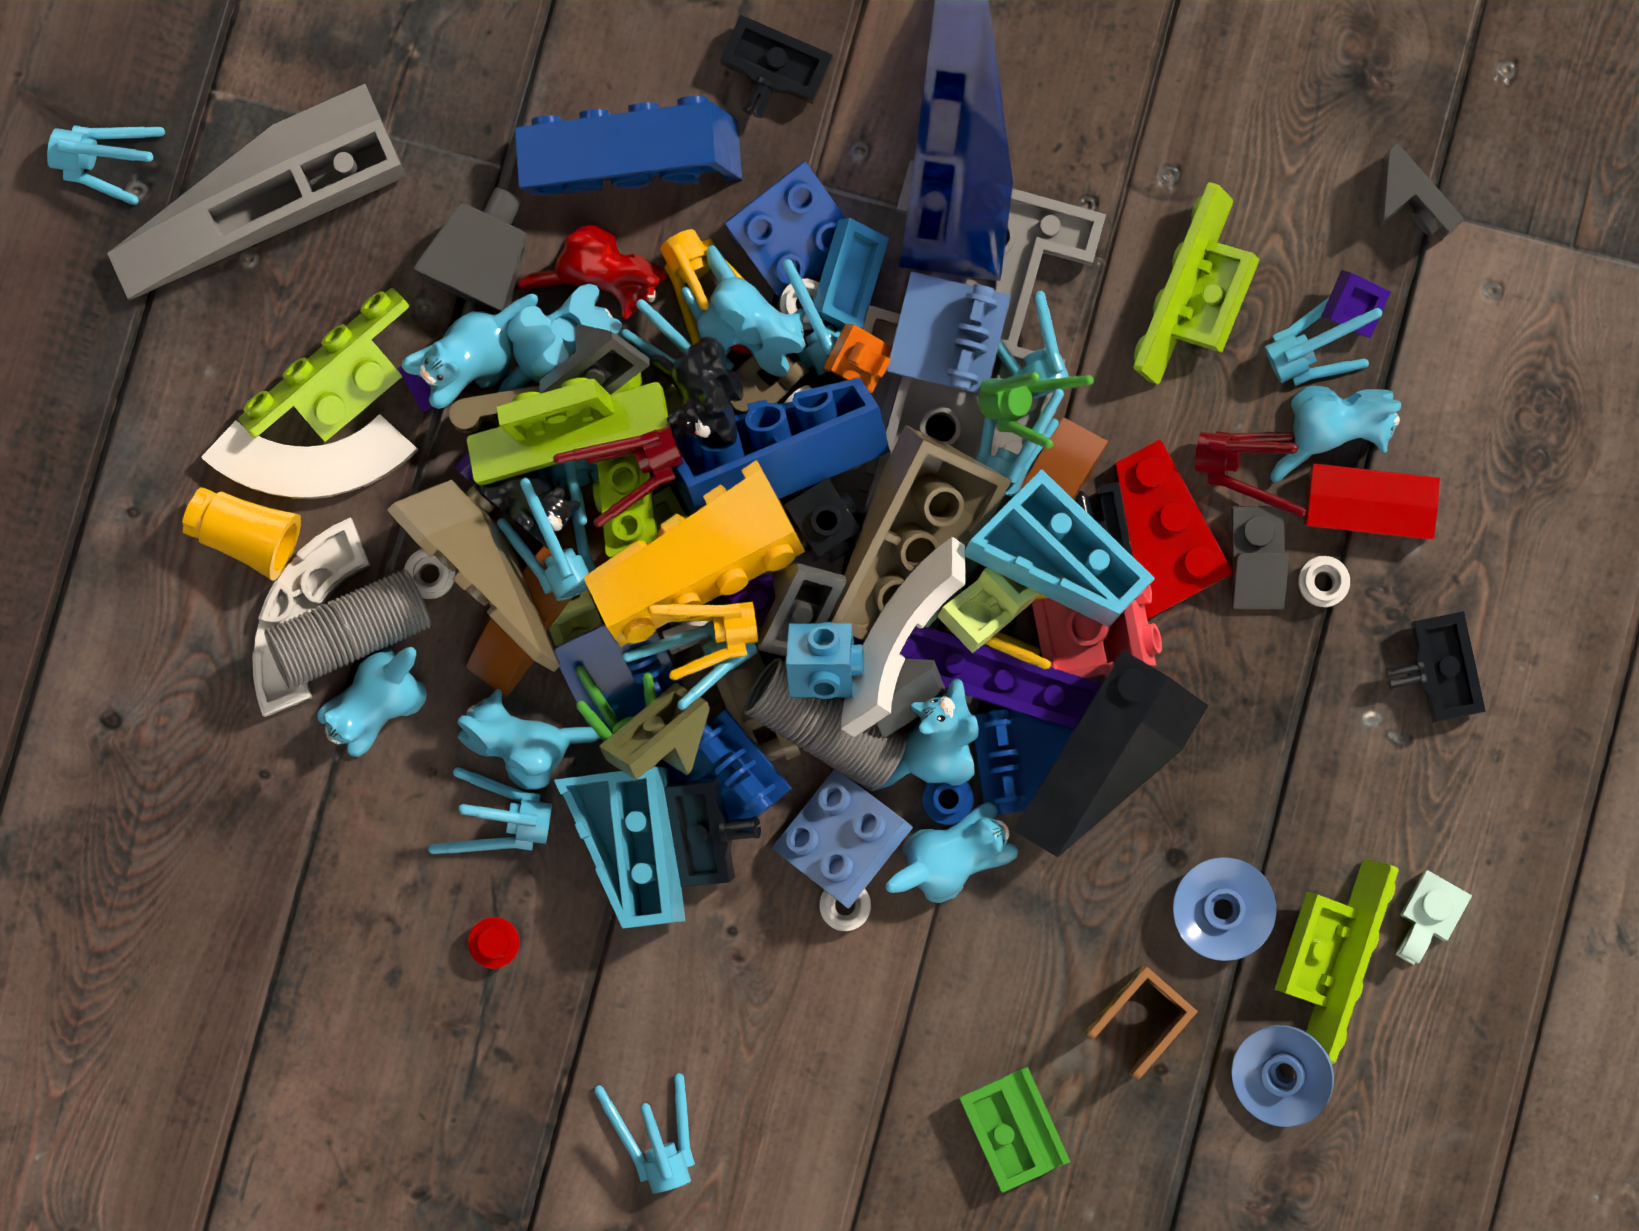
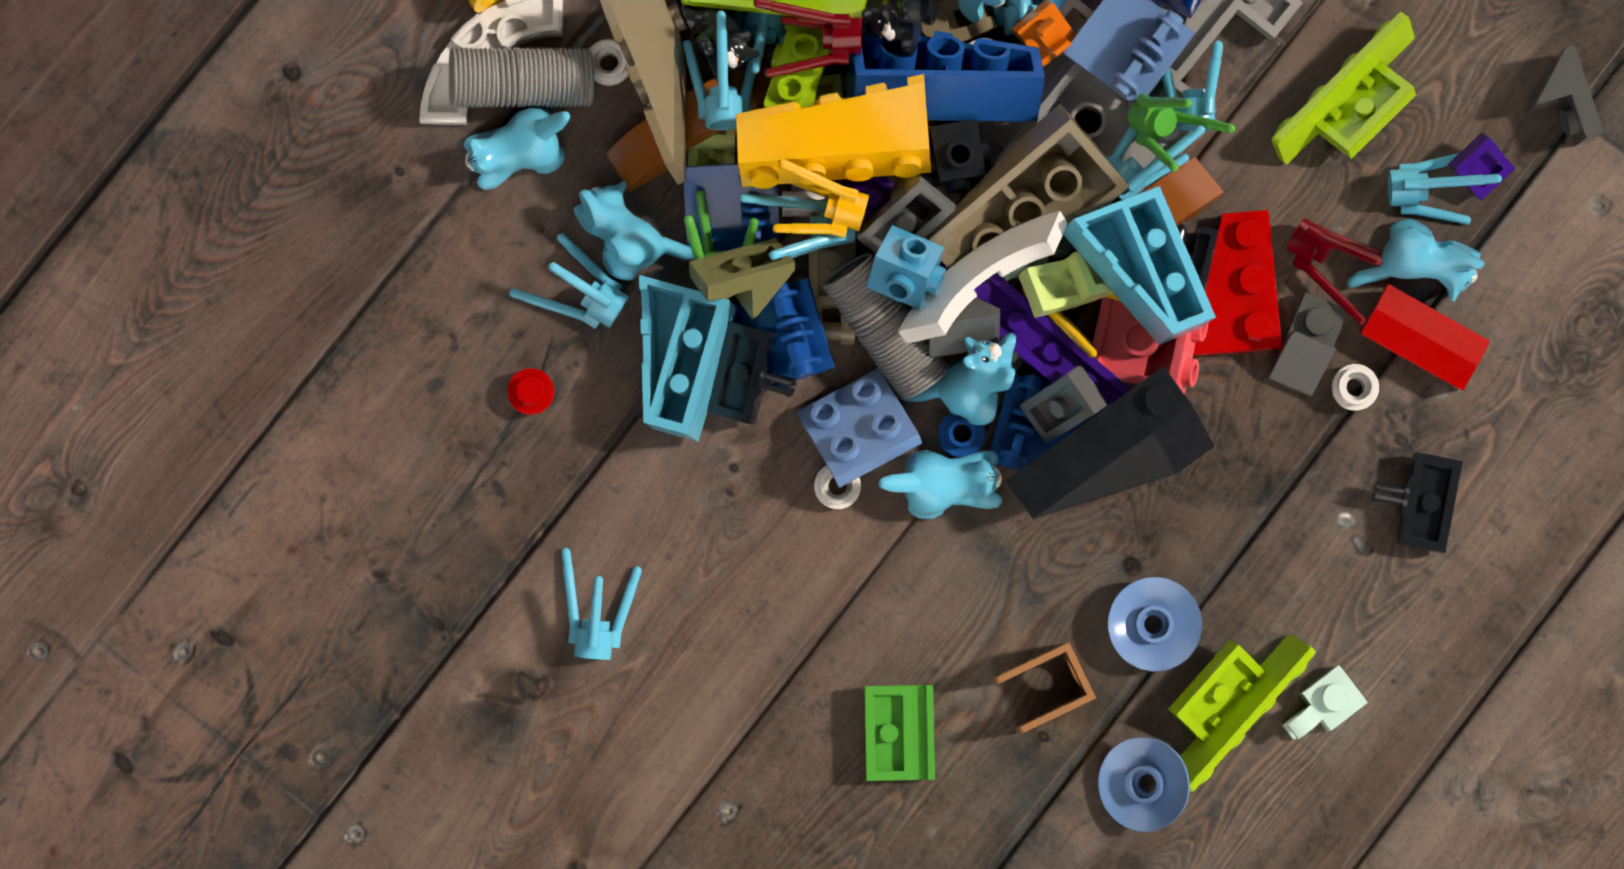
camera: 15 degrees right, 0 degrees up
(1039, 728) = (1063, 404): none -> dark grey slope

